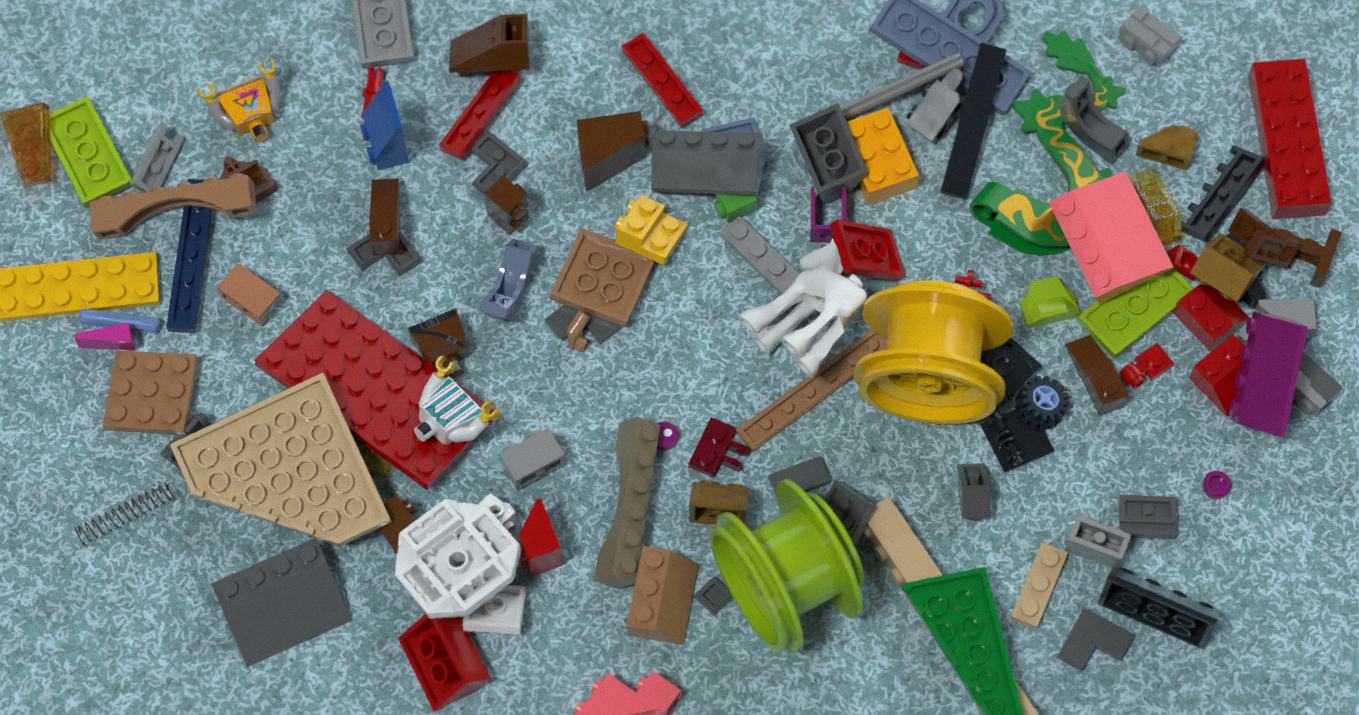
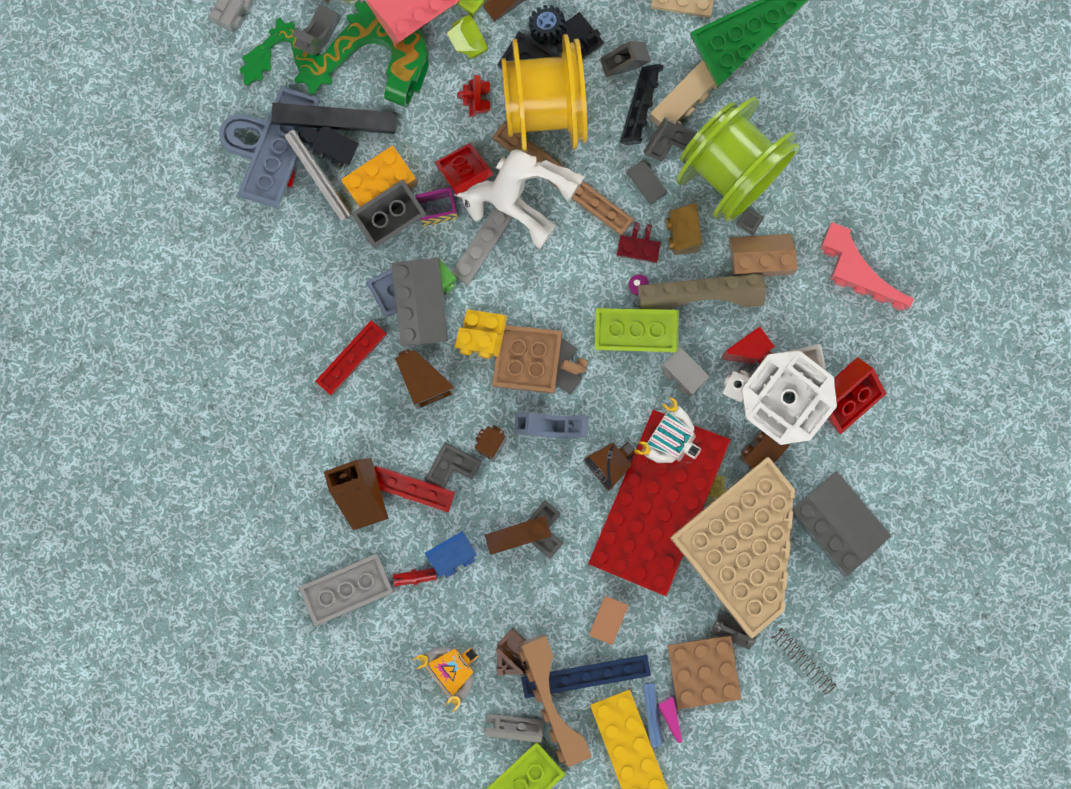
camera: 105 degrees left, 15 degrees up
(602, 409) = (636, 330): none -> lime plate
(903, 492) = (640, 104): none -> black hinge

